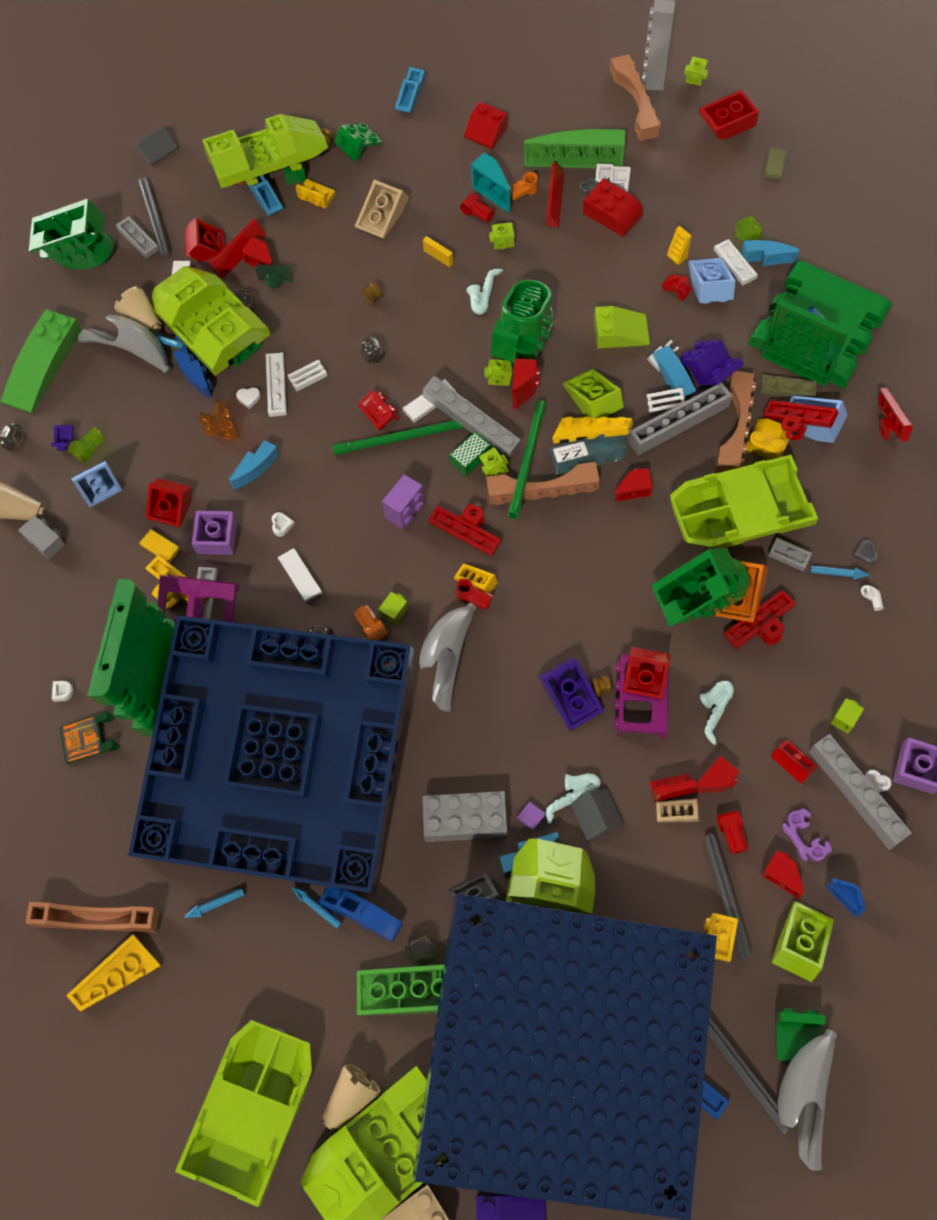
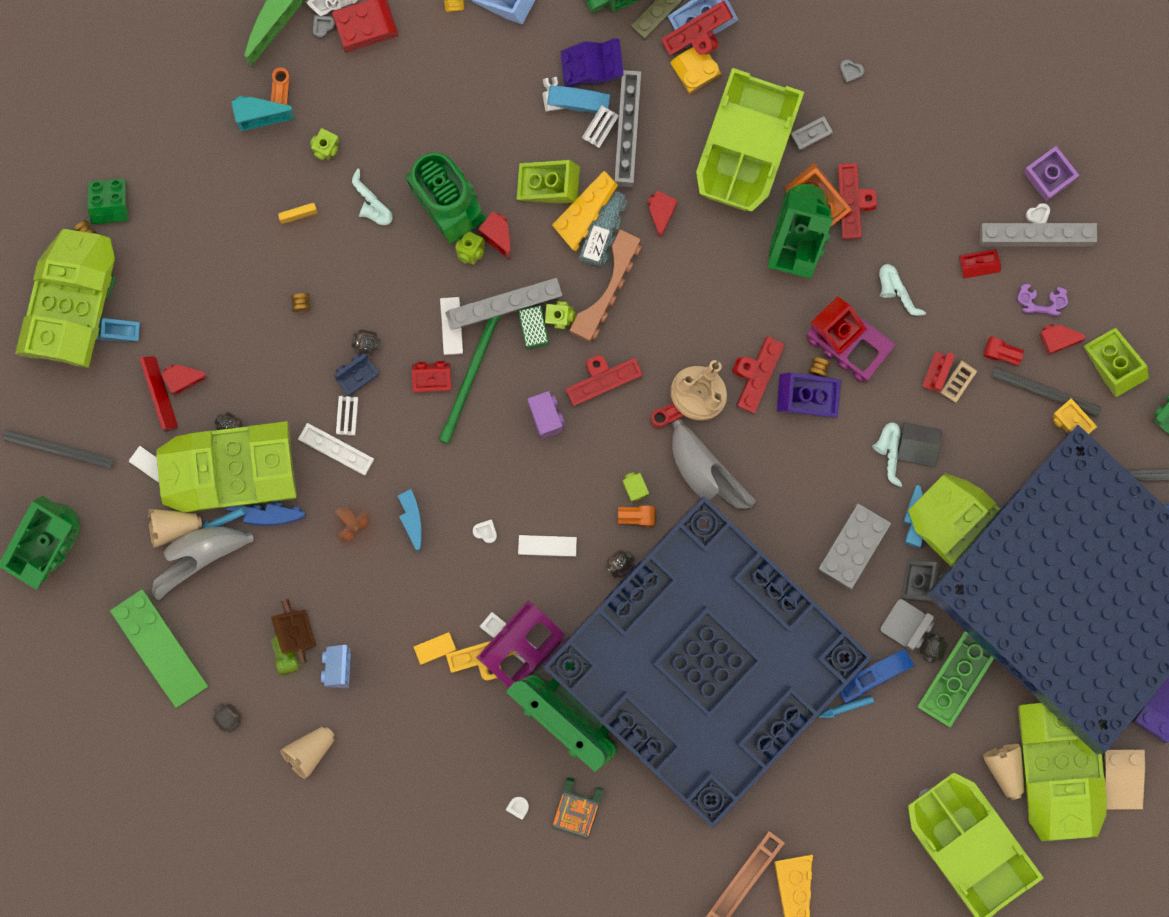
camera: 60 degrees left, 15 degrees up
(42, 537) = (355, 745): light grey brick -> none
(63, 437) = (262, 671): dark purple bracket -> none
(107, 437) = (293, 631): none -> reddish brown plate
(137, 237) = (74, 479): light grey plate -> none
(168, 502) = (397, 615): red slope -> none
(197, 911) = (790, 784): dark azure piece -> none
(203, 240) = (127, 419): red slope -> none
(214, 532) = (460, 593): medium lavender brick -> none
(248, 397) = (332, 482): white tile -> none
(274, 275) = (216, 379): clear green tile -> none
(315, 193) = (142, 281): yellow bracket -> none
(343, 359) = (356, 374): none -> dark blue bracket
(381, 209) = (211, 234): tan slope -> none
(410, 90) = (84, 112): dark azure slope -> none
(426, 910) = (907, 625): none -> light grey bracket
(473, 206) = (268, 146): red piece -> none
(486, 125) = (182, 71): red slope -> none
(488, 579) = (636, 404): yellow slope -> none
(508, 604) = (699, 391): none -> tan piece
(516, 502) = (536, 244): green piece -> none
(531, 816) = (886, 495): medium lavender tile -> none
(555, 196) = (310, 65): red slope -> none
(558, 641) = (757, 373): none -> red plate
(620, 327) = (497, 110): lime slope -> none
(678, 285) = (489, 29): red bracket -> none
(718, 777) = (954, 331): red slope -> none
(730, 453) = (635, 57): nougat arch -> none
(847, 715) = (974, 195): lime brick -> none
(848, 895) = (1108, 304): blue slope -> none
(856, 573) = (863, 94): dark azure piece -> none
(873, 595) = (892, 95): white arm -> none

